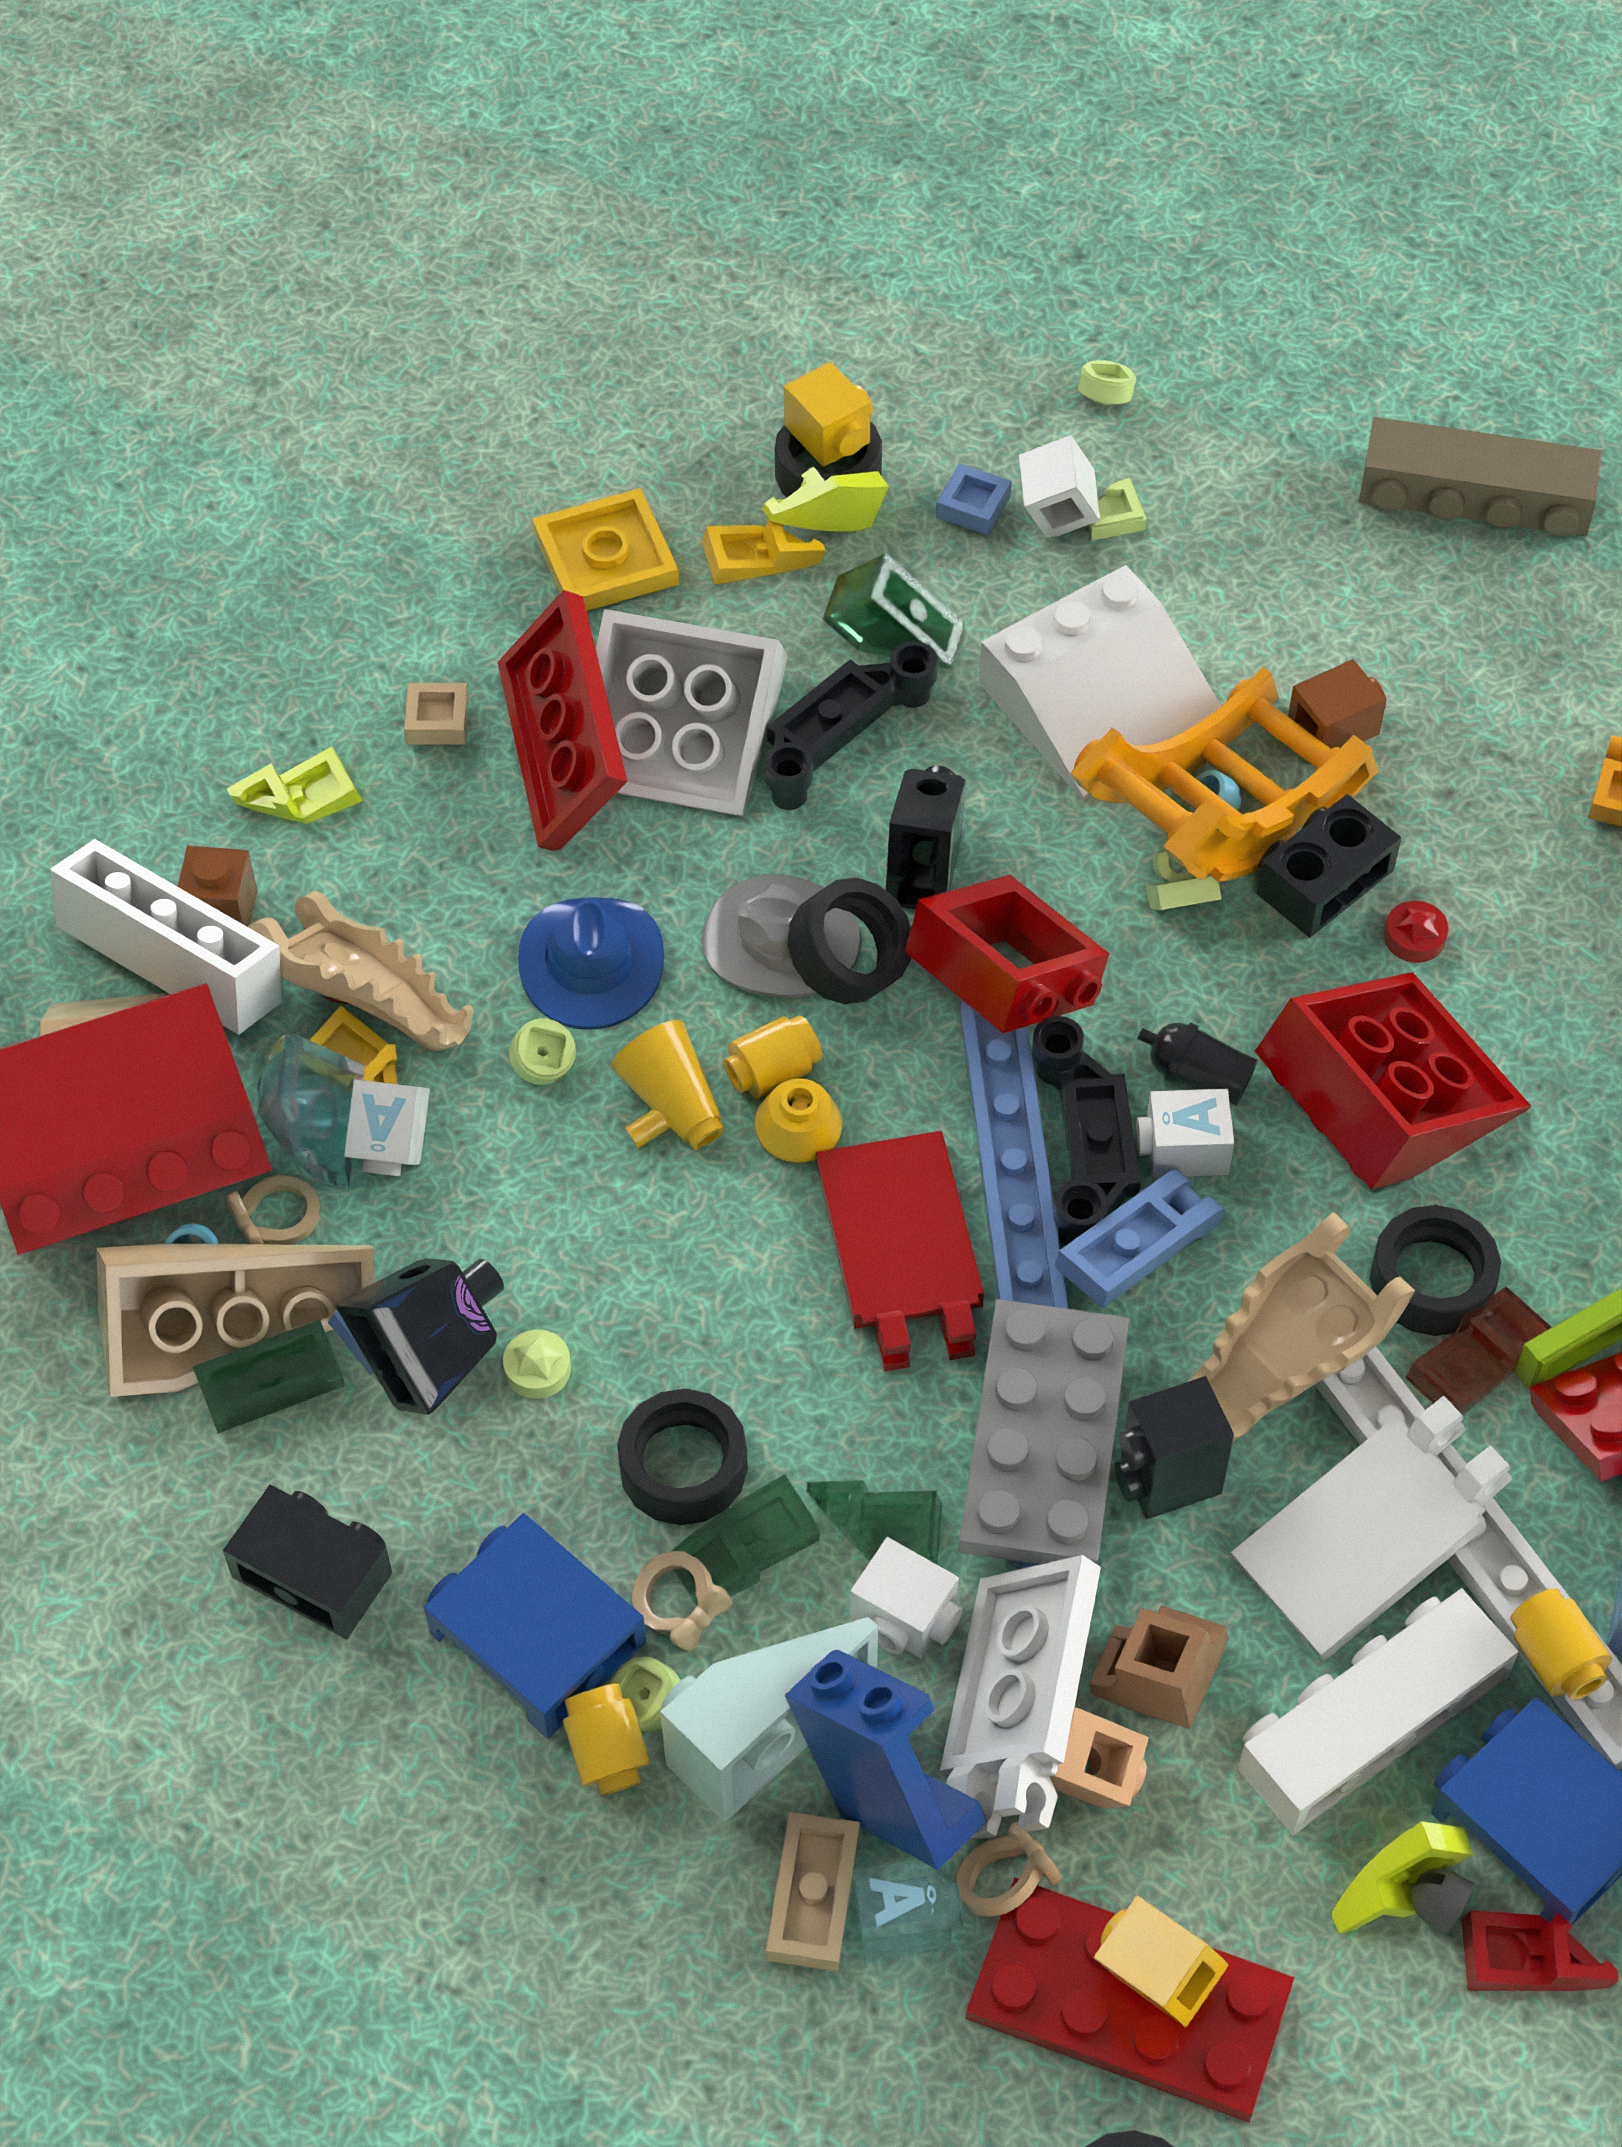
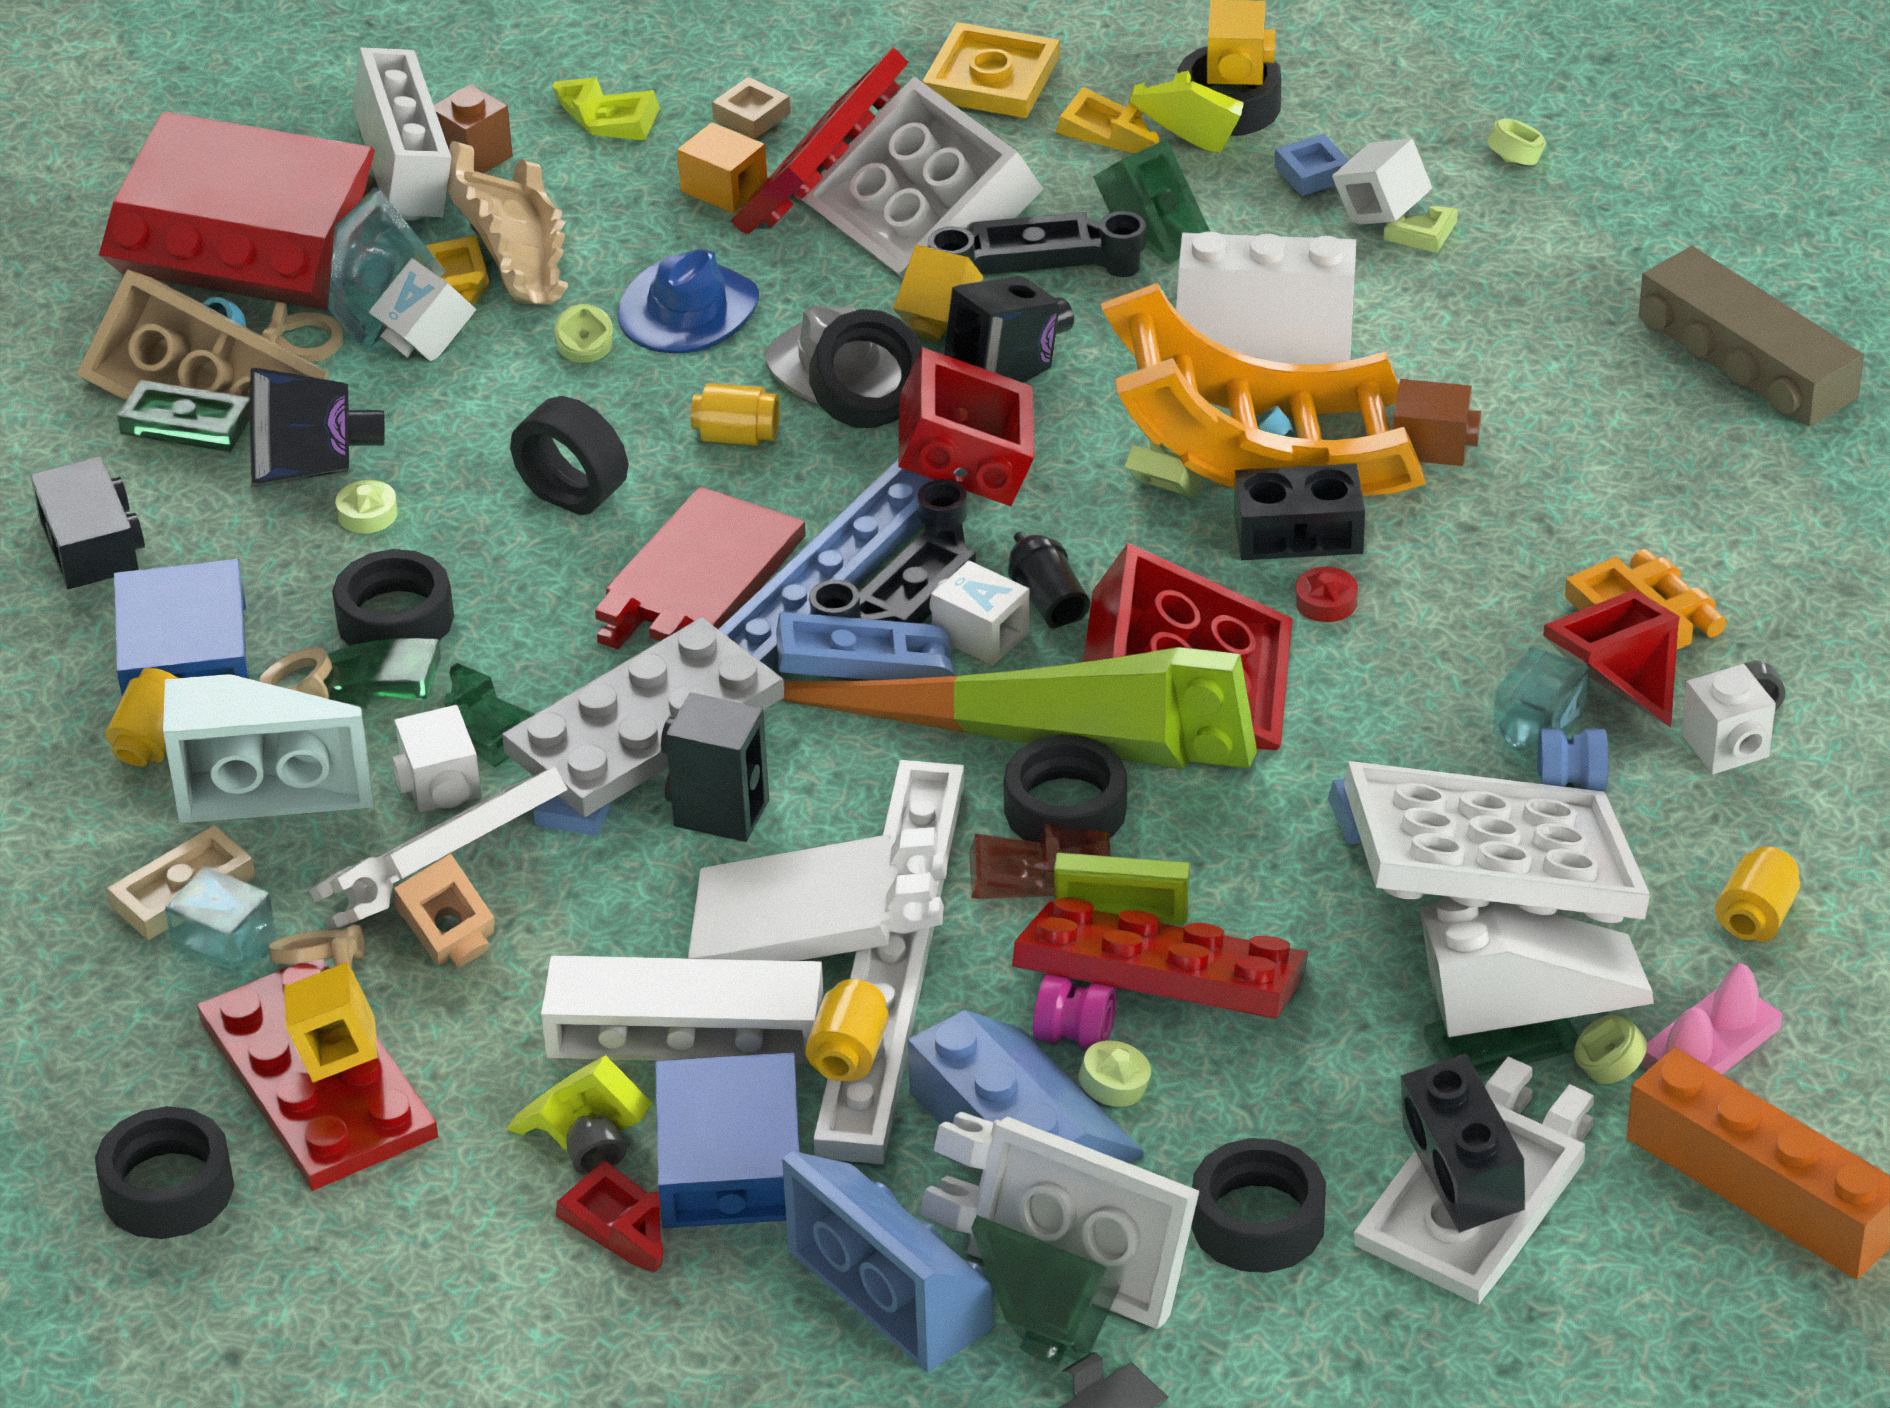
camera: 40 degrees right, 15 degrees down
(482, 796) = (721, 167): none -> light orange brick
(671, 1082) = (647, 386): yellow piece -> none
(695, 1199) = (587, 437): none -> black tyre
(798, 1121) = (712, 459): yellow cone -> none
(826, 824) = (927, 289): none -> yellow brick
(859, 1738) = (278, 859): blue panel -> none
(1160, 1664) = (564, 892): medium nougat brick -> none
(1297, 1327) = (900, 747): tan animal -> none
(1429, 1161) = (1141, 706): none -> lime plate

